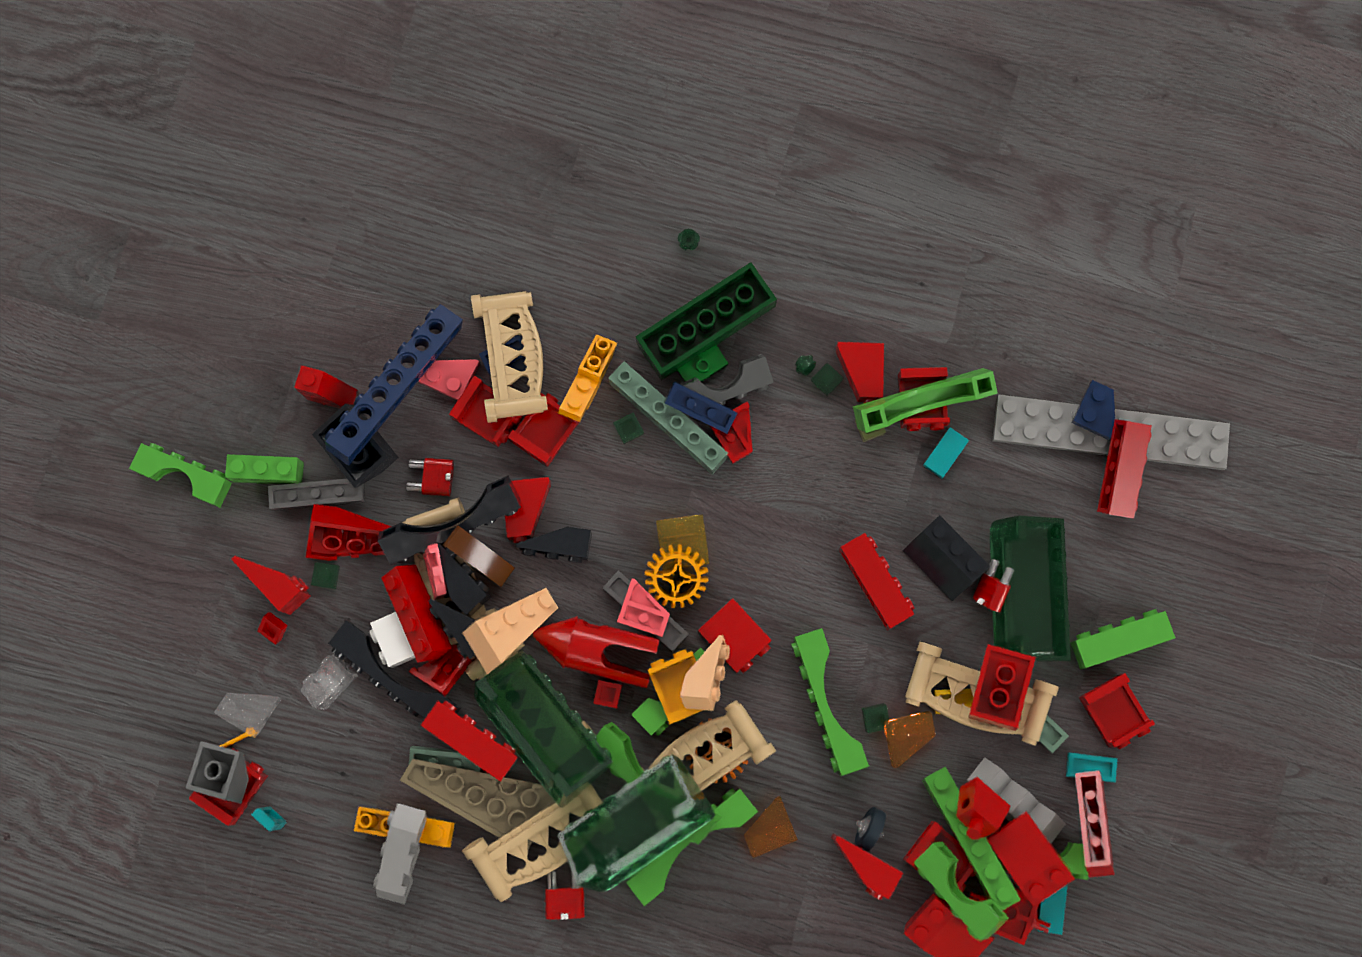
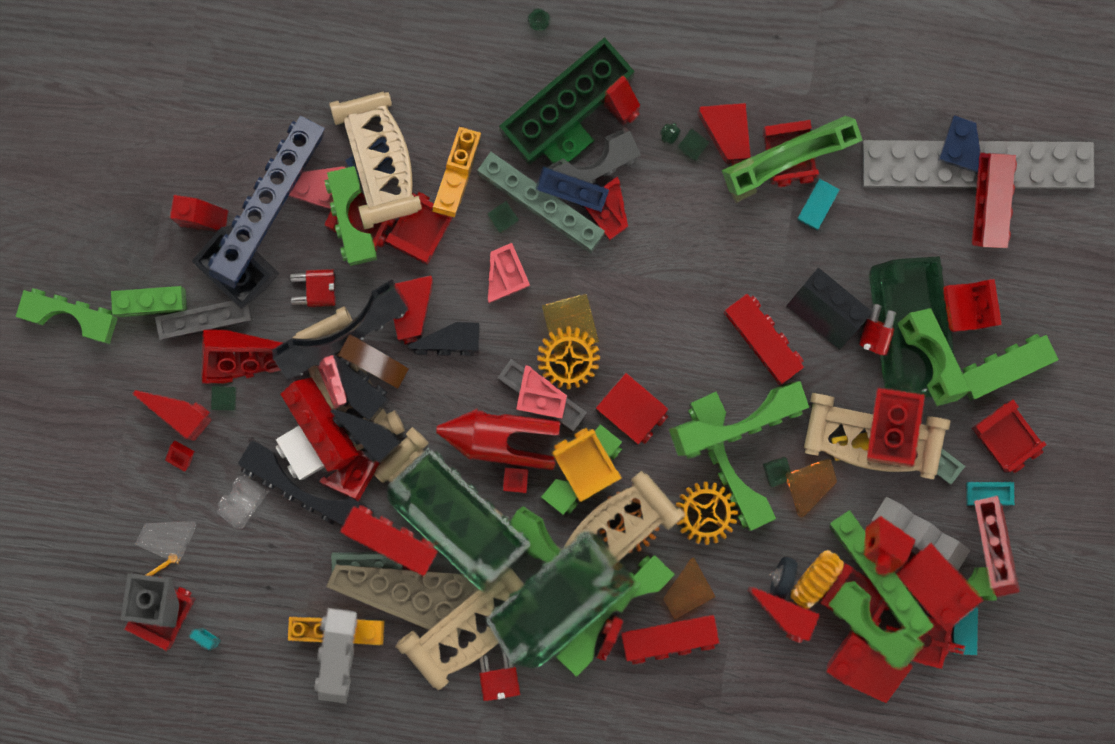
camera: 10 degrees left, 5 degrees up
(473, 379) = (344, 188): none -> bright green arch
(505, 630) = (410, 431): light nougat wedge -> none
(624, 484) = (505, 273): none -> coral wing
(686, 862) = (611, 630): none -> red wing
(703, 679) = (606, 456): light nougat slope -> none
(746, 877) = (670, 638): none -> red brick
(760, 327) = (622, 101): none -> red slope
(811, 735) = (723, 525): none -> light orange gear
(885, 648) = (780, 402): none -> bright green arch
(904, 835) = (817, 579): none -> light orange gear
(1040, 593) = (924, 332): none -> bright green arch
(1092, 572) = (972, 305): none -> red bracket

